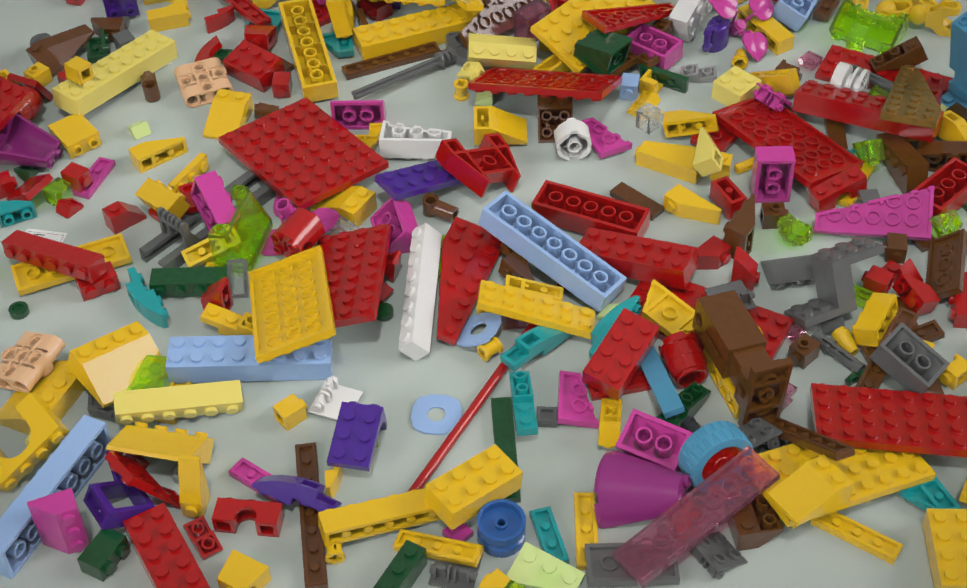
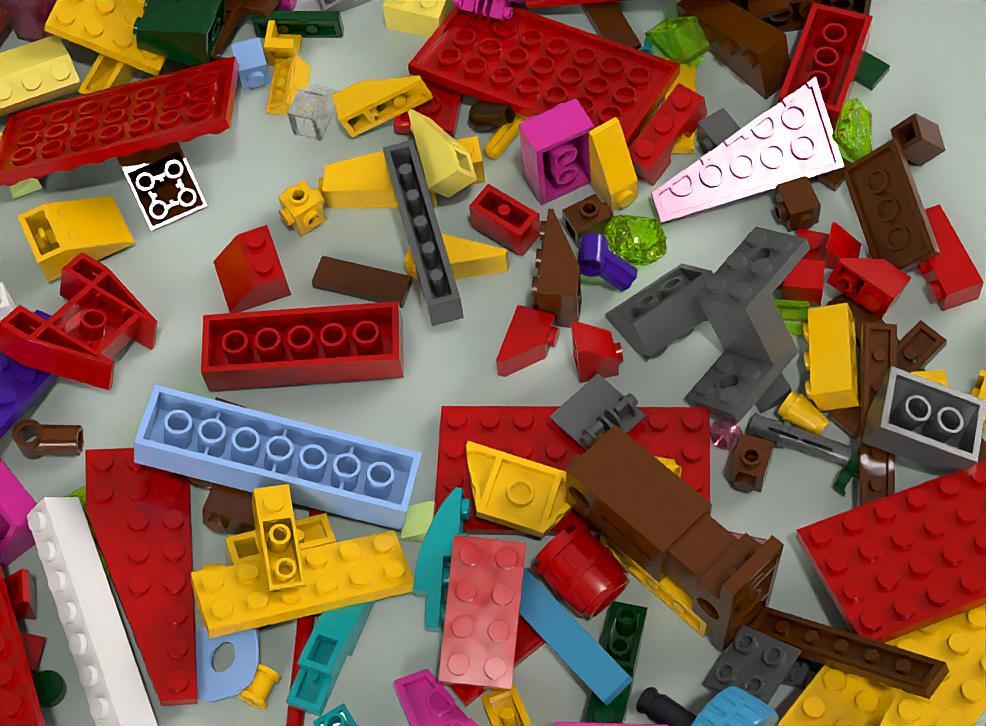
camera: 20 degrees left, 15 degrees up
(534, 279) = (277, 537): none -> yellow slope
(572, 139) = (209, 211): white brick -> none
(582, 172) = (251, 271): none -> red slope
(603, 141) = (249, 183): dark pink wing -> none
(622, 156) = (302, 208): none -> yellow brick
(643, 257) = (422, 401): red brick -> none
(679, 182) = (423, 233): none -> dark grey brick
(744, 150) = (490, 115): none -> dark brown cone
(768, 229) = (598, 260): none -> dark purple piece
(799, 189) = (612, 166): none -> yellow slope

